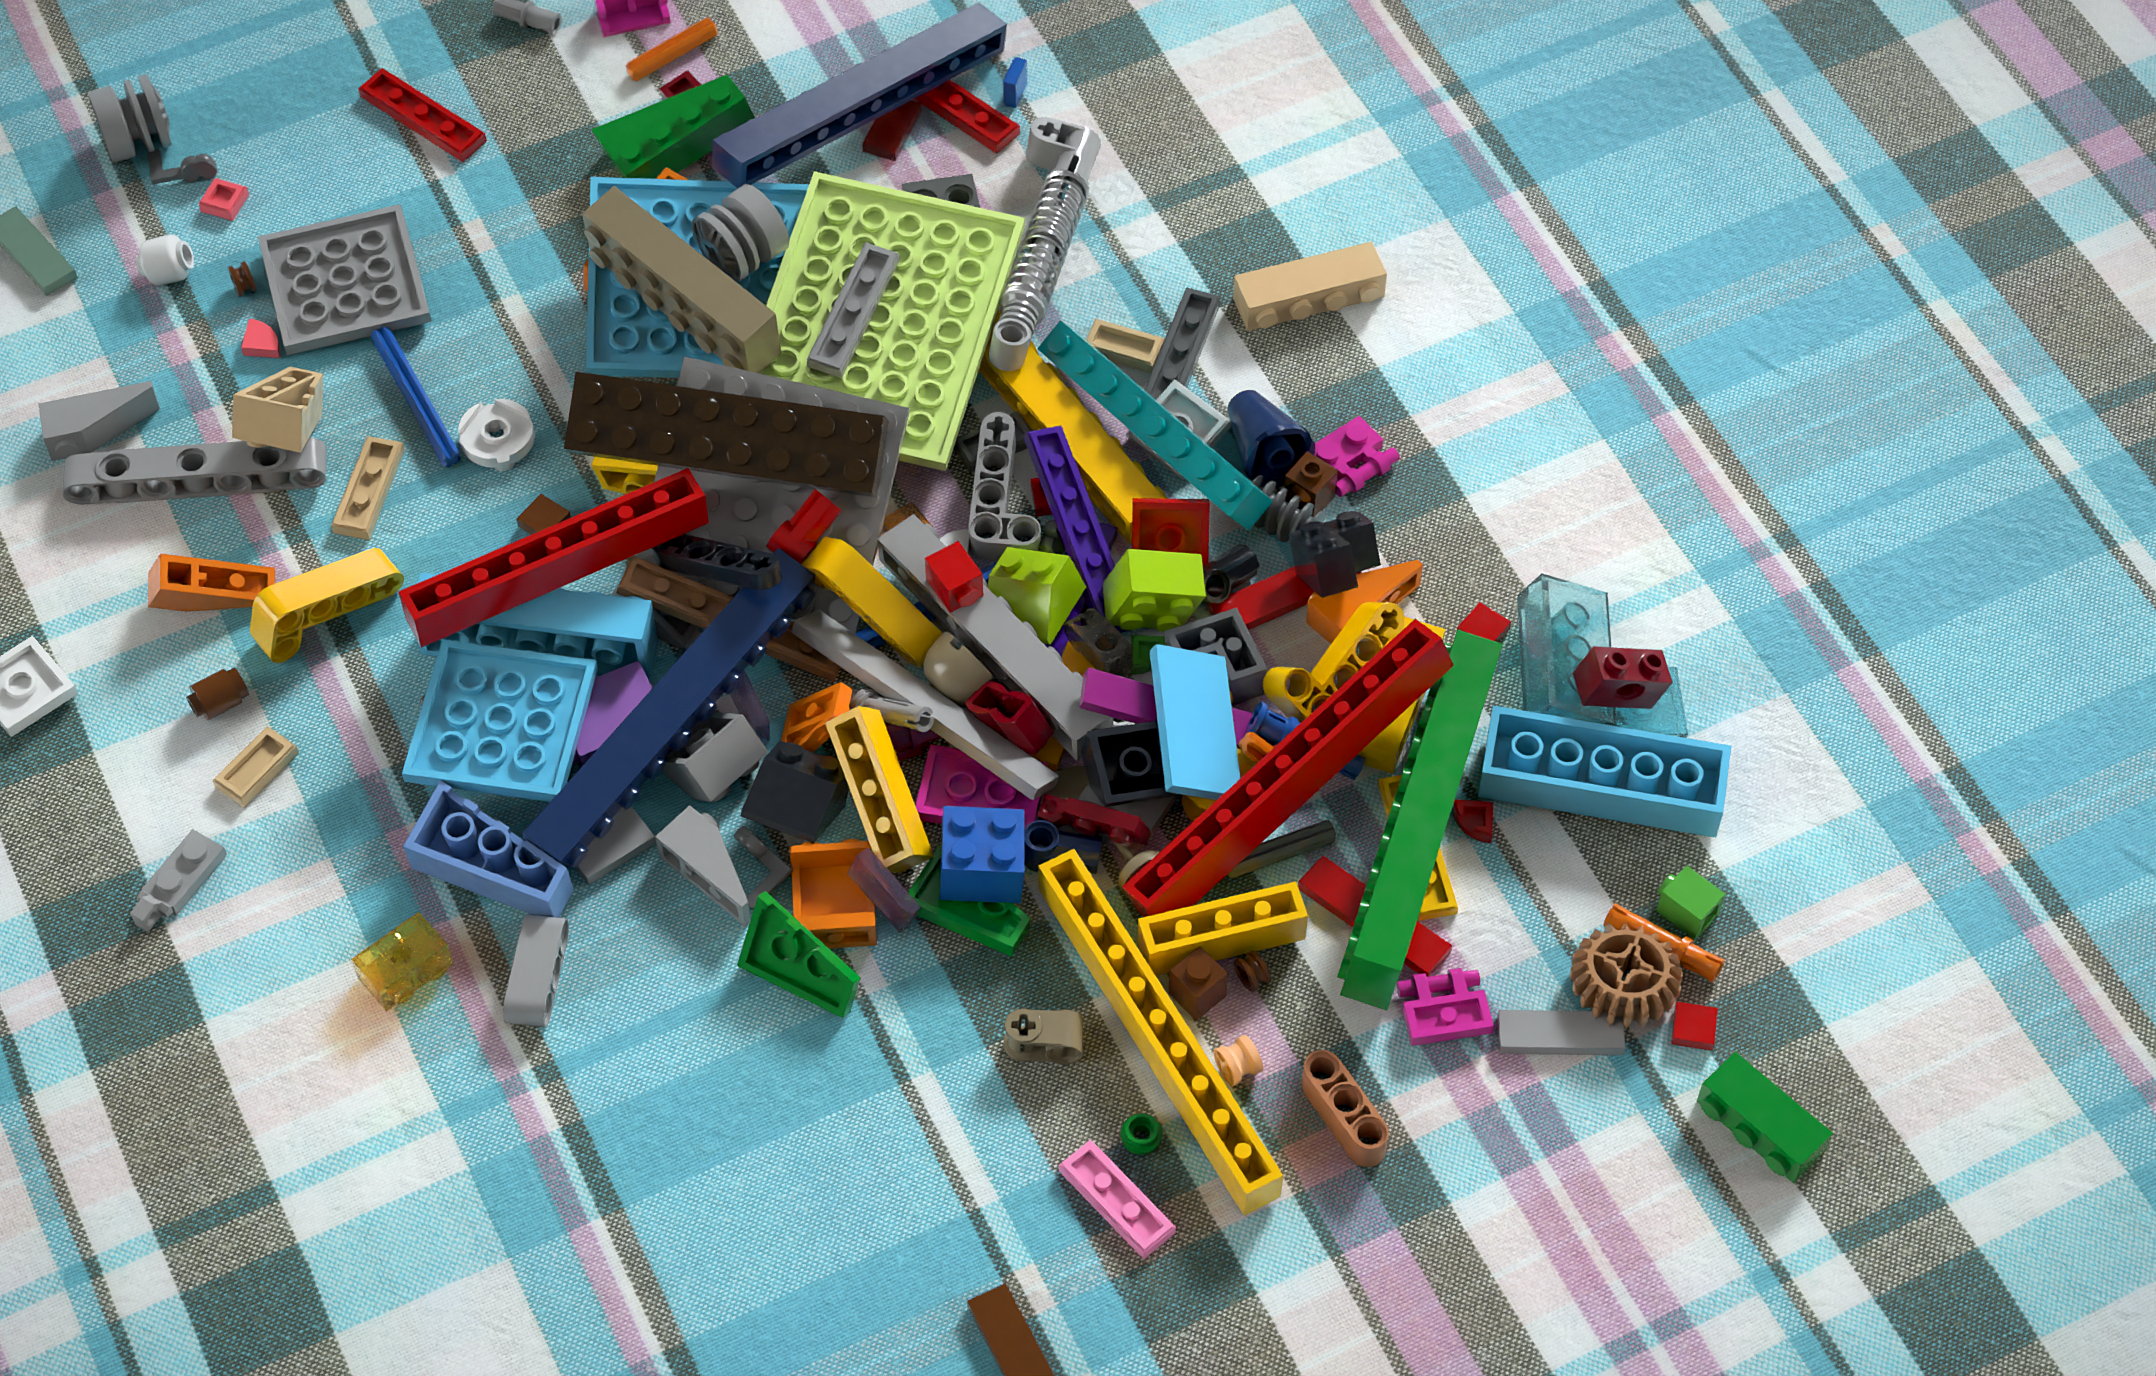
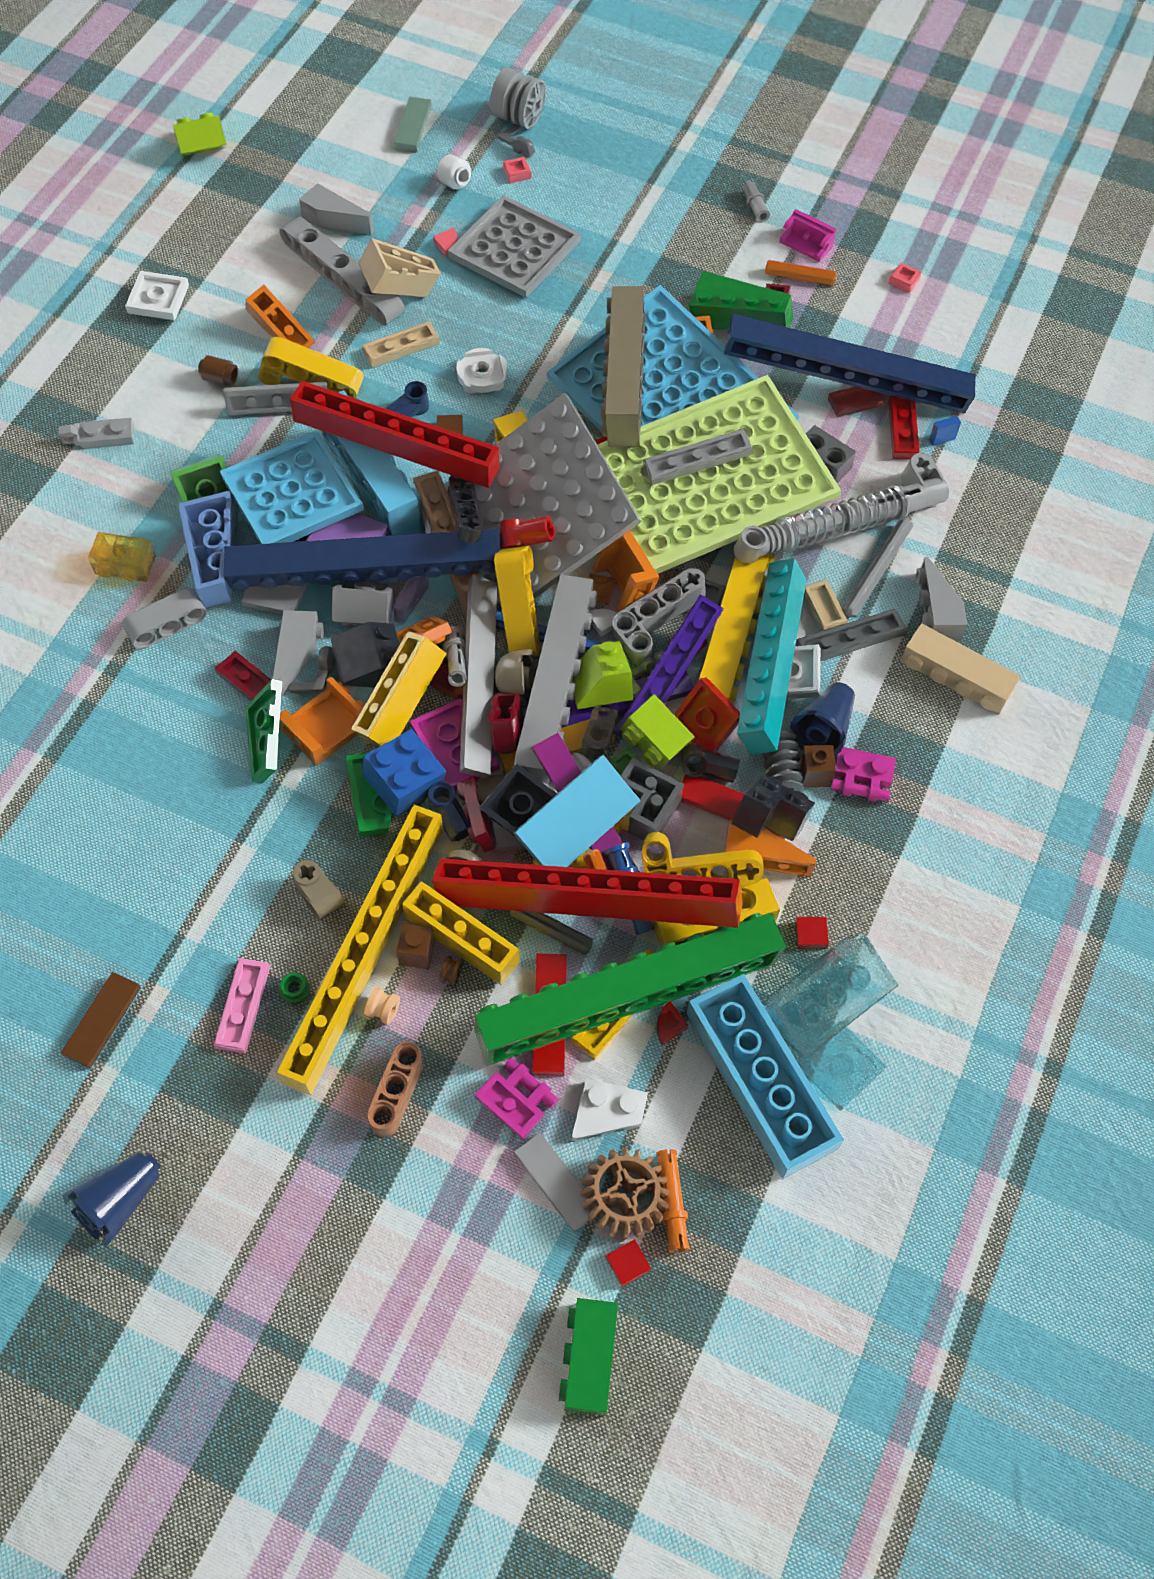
camera: 50 degrees right, 5 degrees up
(242, 279) = (473, 208): reddish brown bush -> none
(255, 766) = (192, 417): tan tile -> none
(325, 659) = (261, 398): none -> light grey tile
(378, 812) = (199, 479): none -> bright green slope
(416, 397) = (473, 324): blue axle -> none
(422, 115) = (649, 206): red tile -> none
(473, 537) = (413, 401): none -> dark blue piece
(699, 938) = (242, 675): none -> dark red plate
(726, 434) = (537, 450): dark brown brick -> none
(741, 232) = (686, 369): light grey wheel -> none
(884, 890) = (342, 741): tile -> none
(935, 479) = (629, 567): none -> orange panel
(954, 577) = (561, 625): red brick -> none
(1122, 265) = (877, 567): none -> light grey axle
(1216, 243) = (942, 605): none -> light grey slope
(1521, 936) = (608, 1109): none -> white wing
(1622, 677) = (833, 1036): dark red brick -> none
(1689, 901) = (715, 1195): bright green brick -> none

